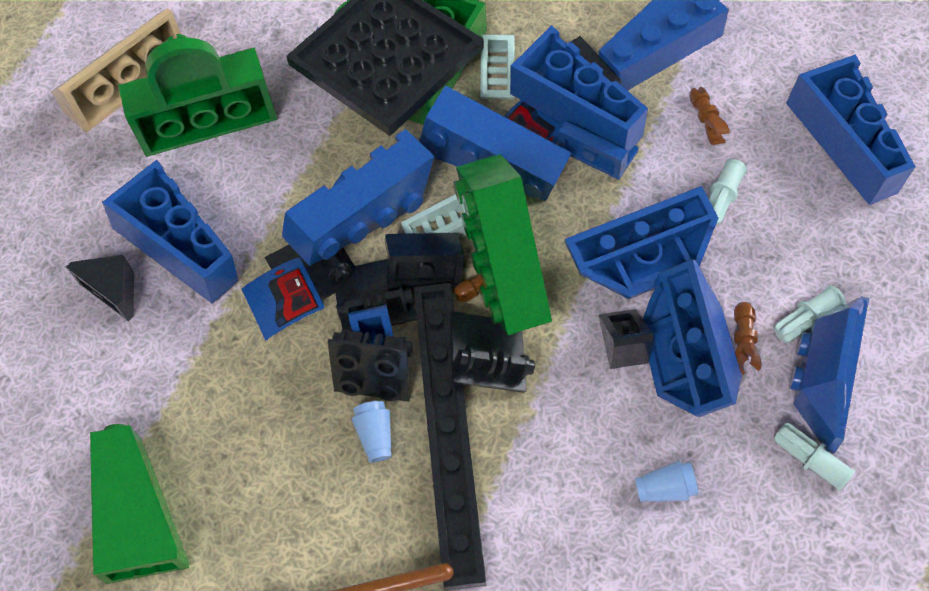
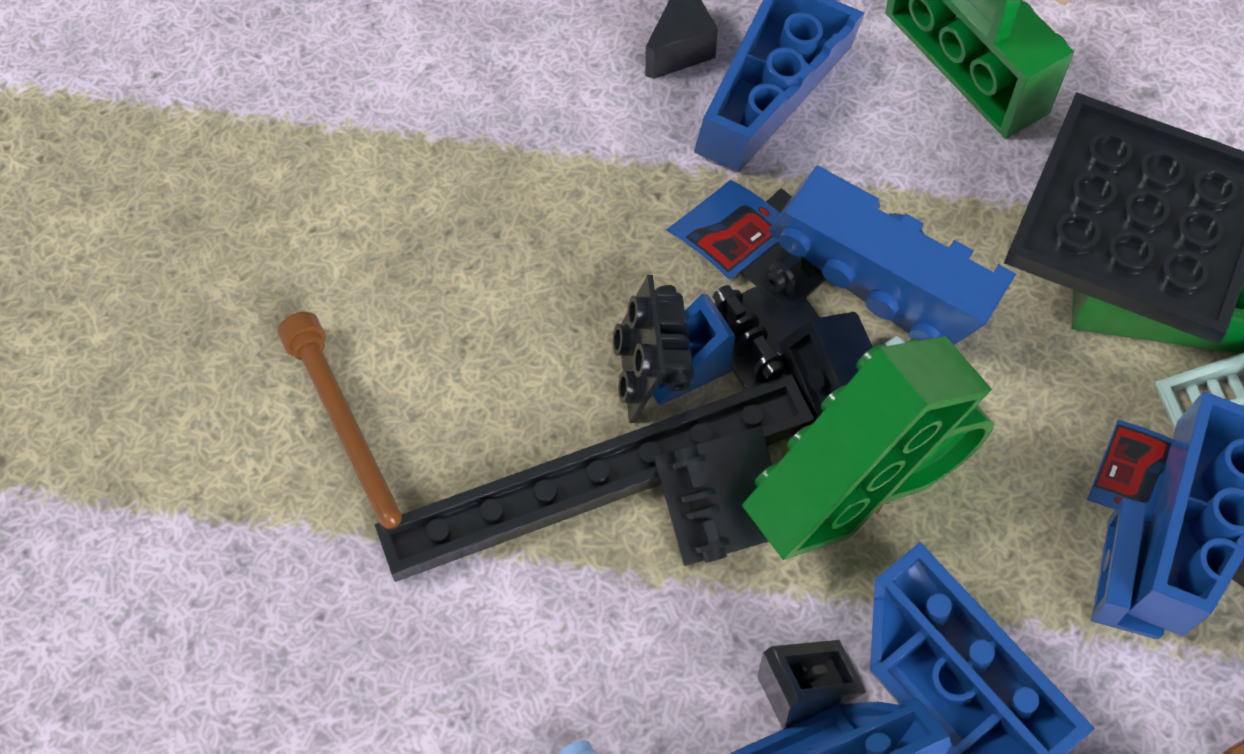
camera: 70 degrees right, 0 degrees up
(129, 513) = (402, 154): green slope -> none
(374, 430) = (569, 387): light blue cone -> none
(466, 131) = (1060, 414): blue wedge -> none

